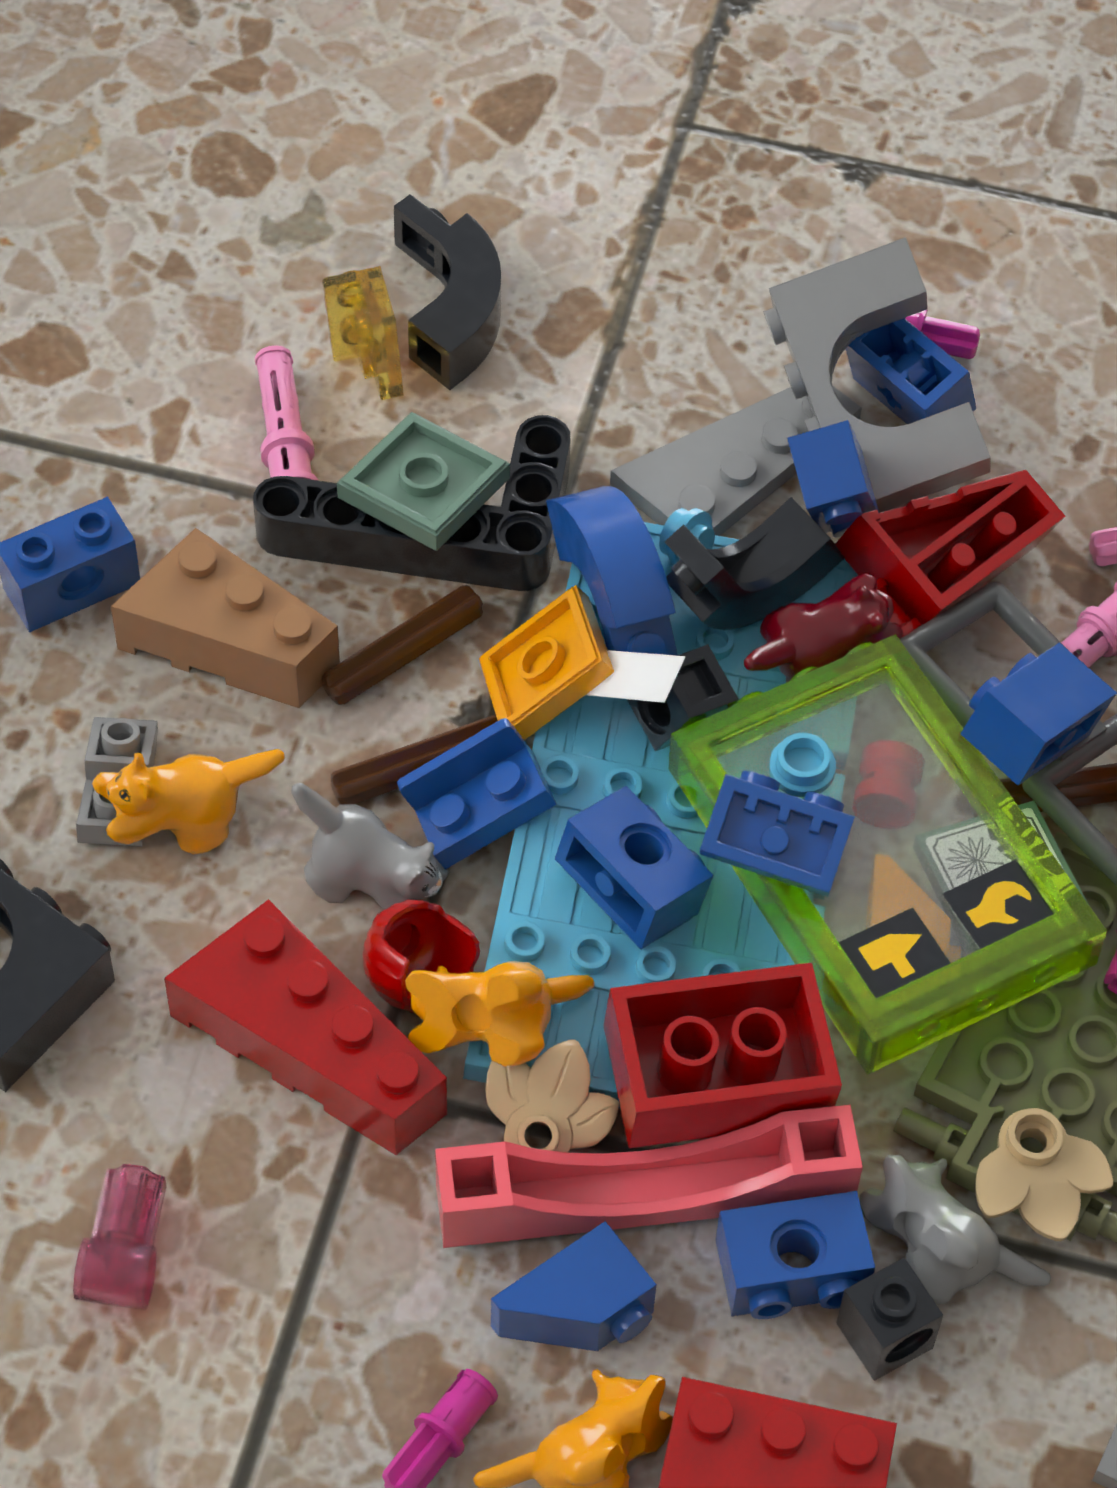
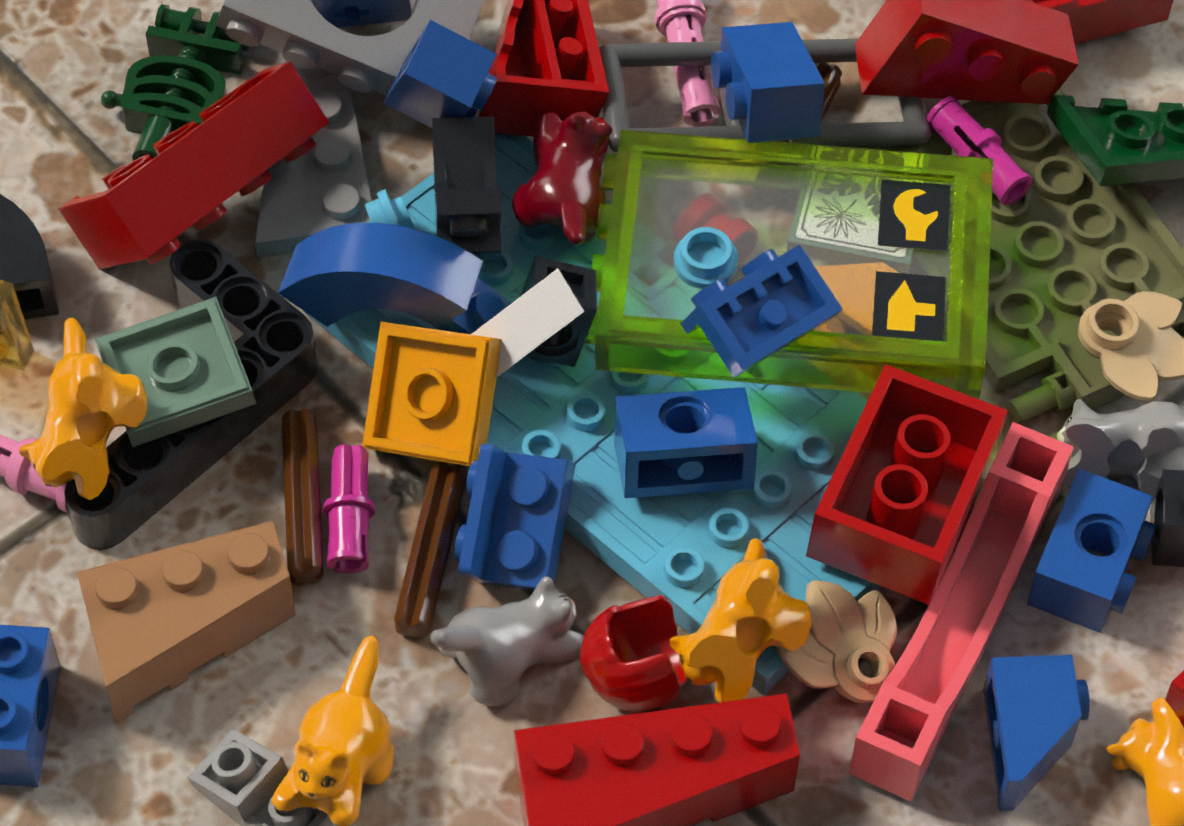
camera: 55 degrees left, 0 degrees up
(331, 434) = (82, 411): none -> light orange animal
(411, 681) = (349, 510): none -> dark pink axle
(630, 382) = (197, 170): none -> red wedge
(705, 320) = (177, 76): none -> dark green torso

